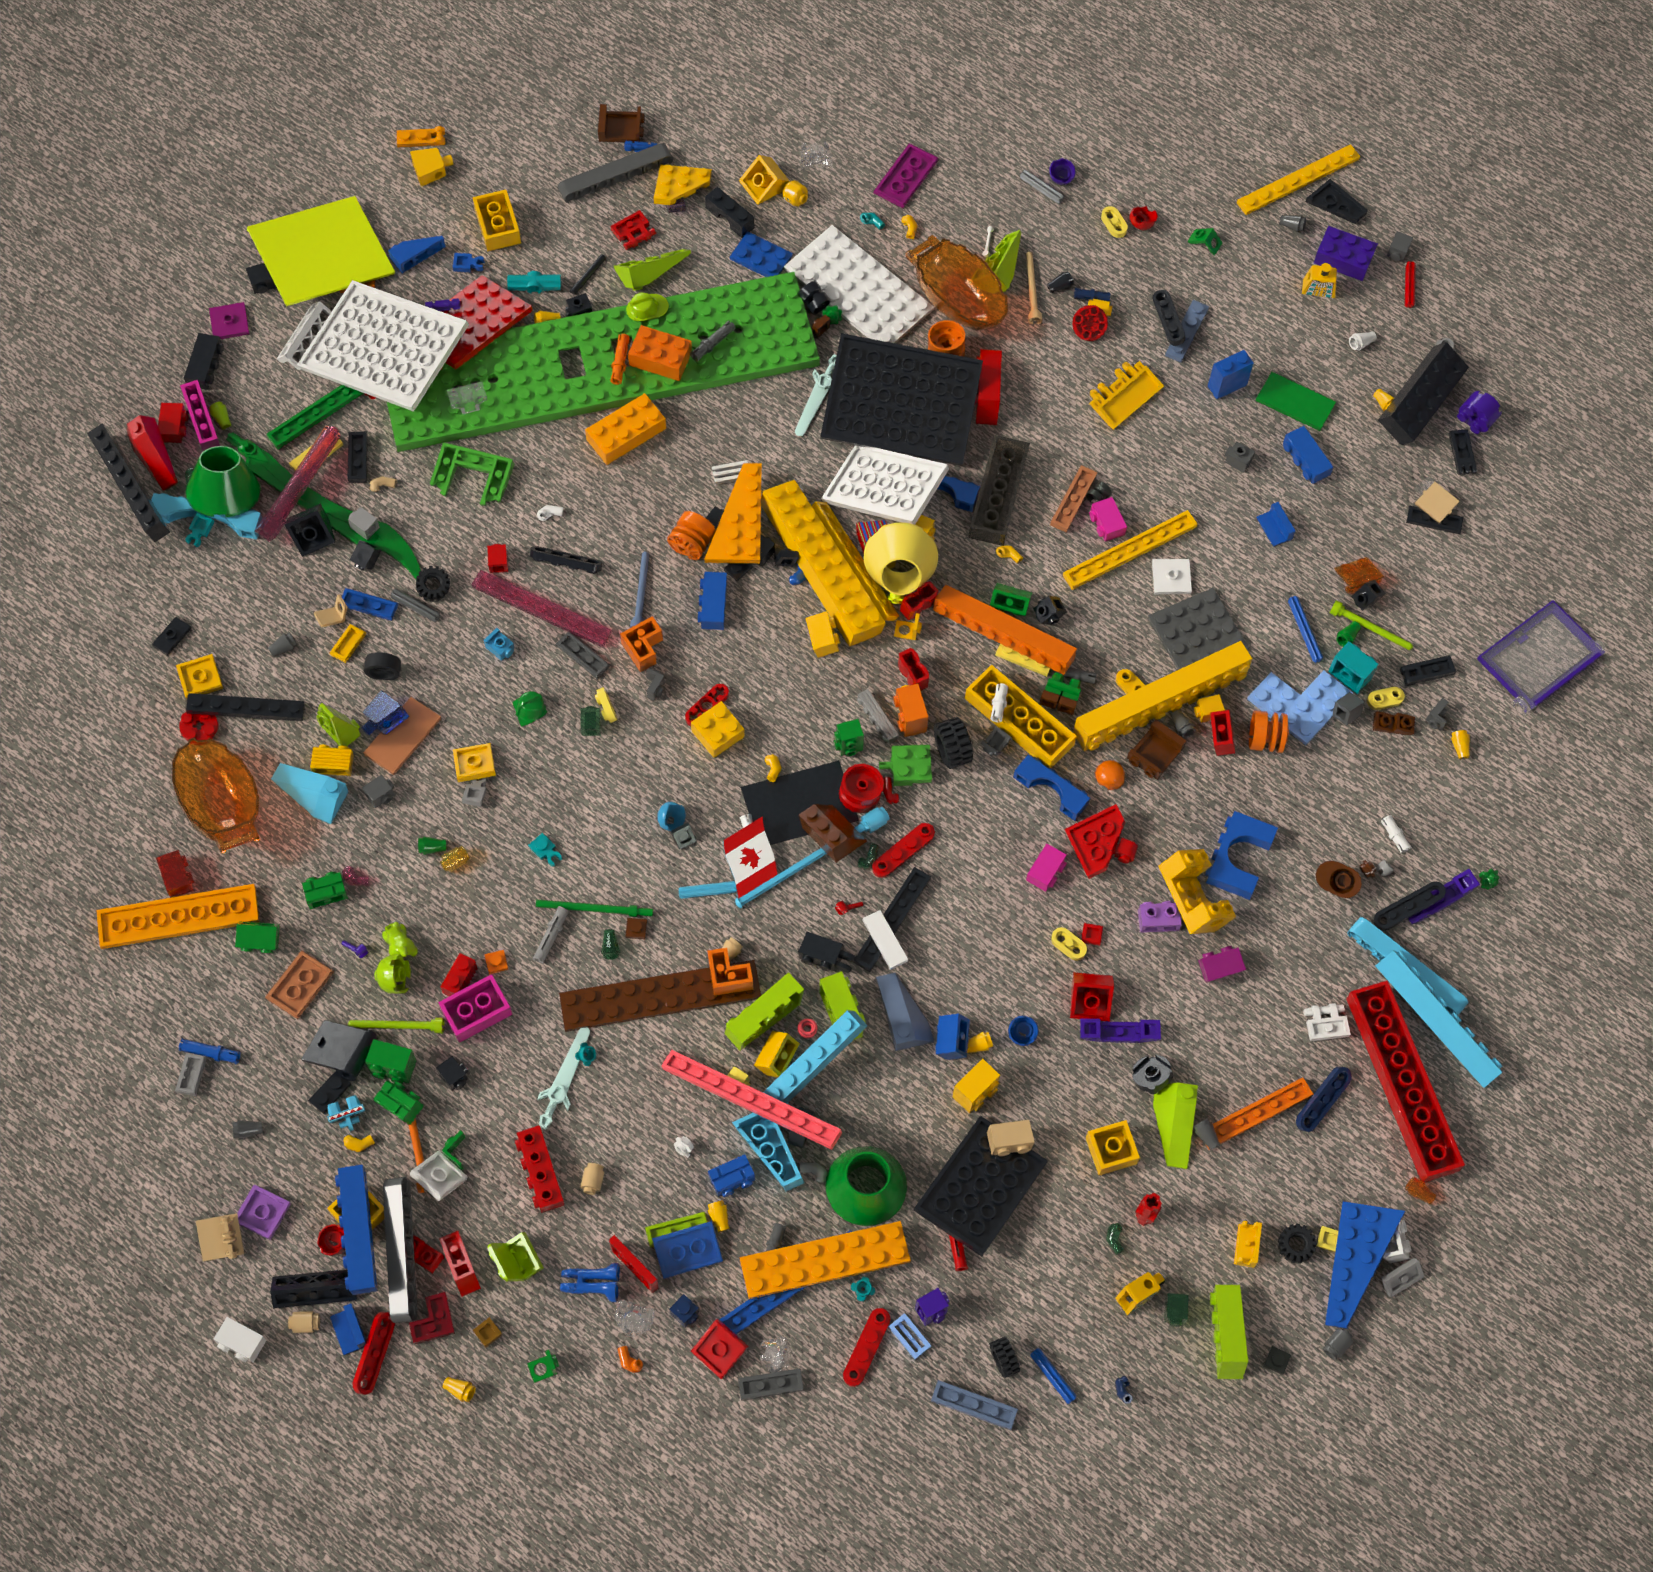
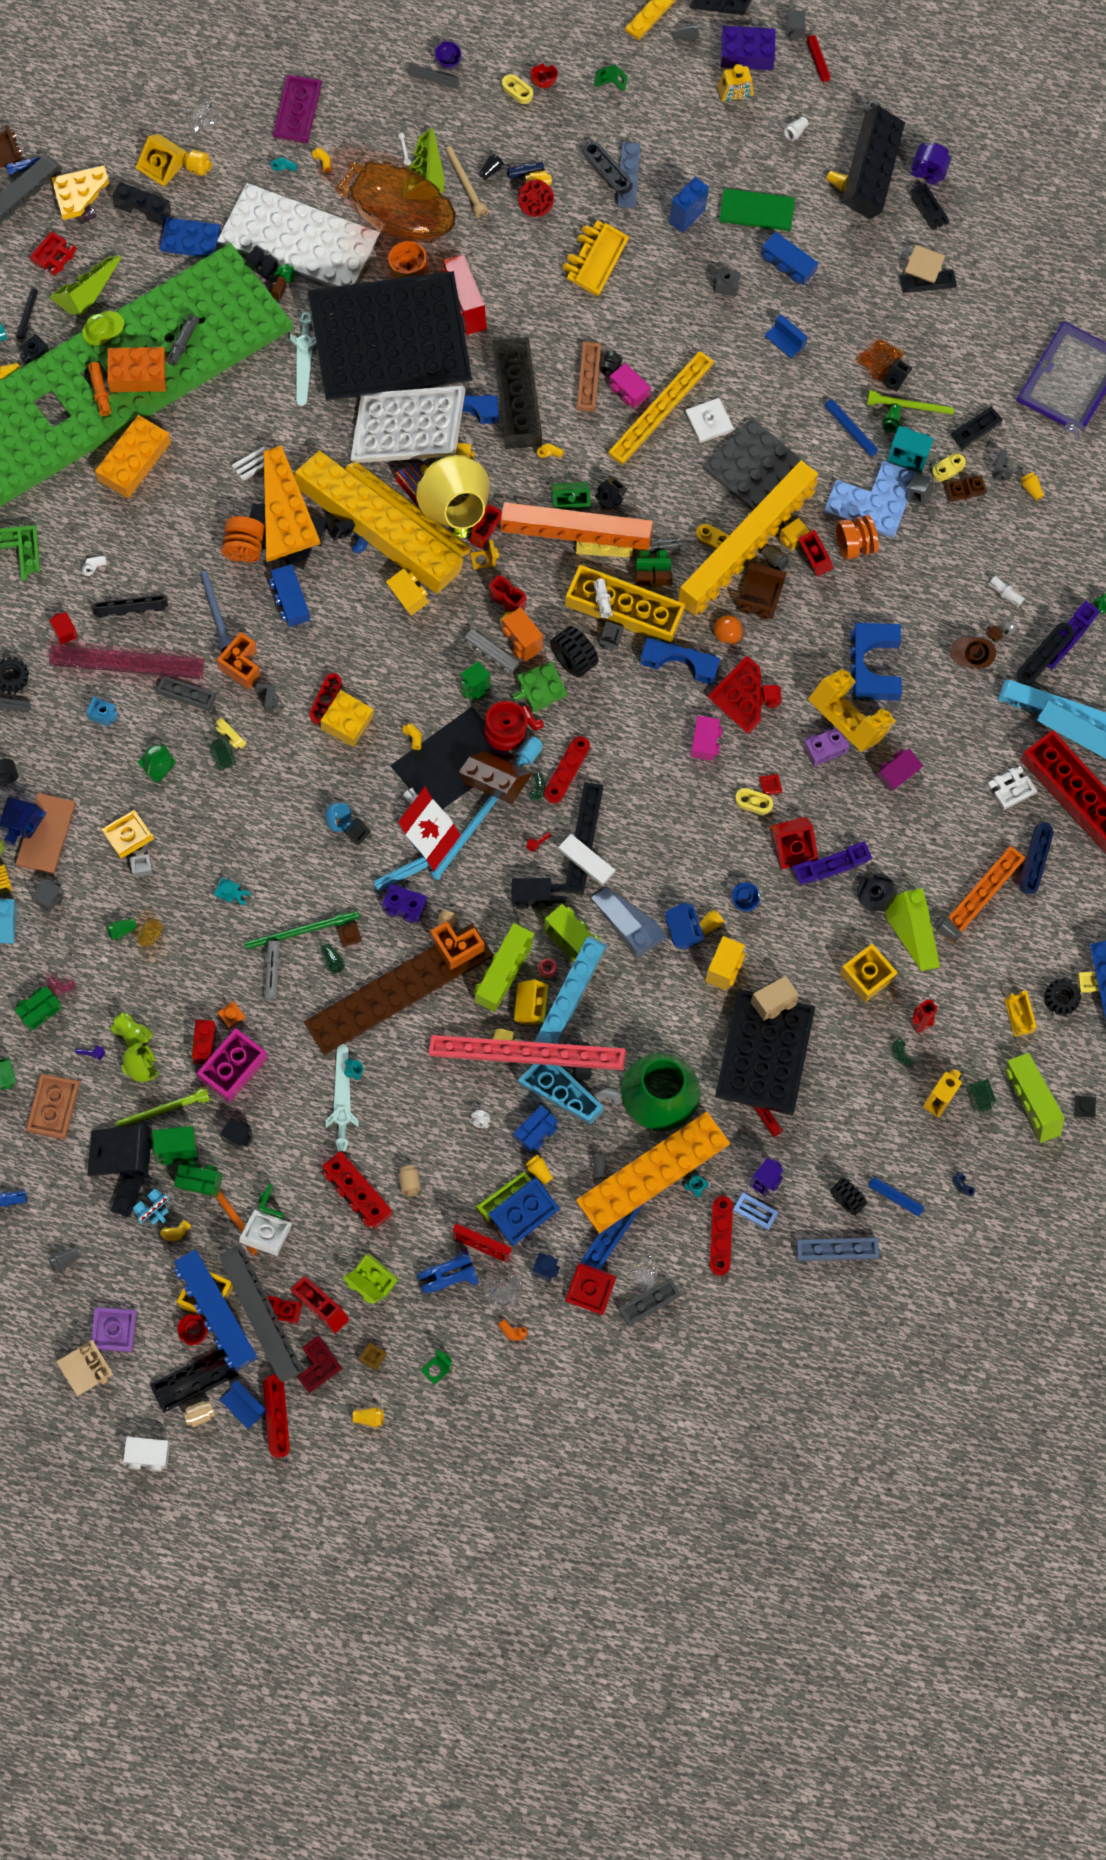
camera: 25 degrees left, 5 degrees up
(698, 918) = (404, 904): none -> dark purple brick

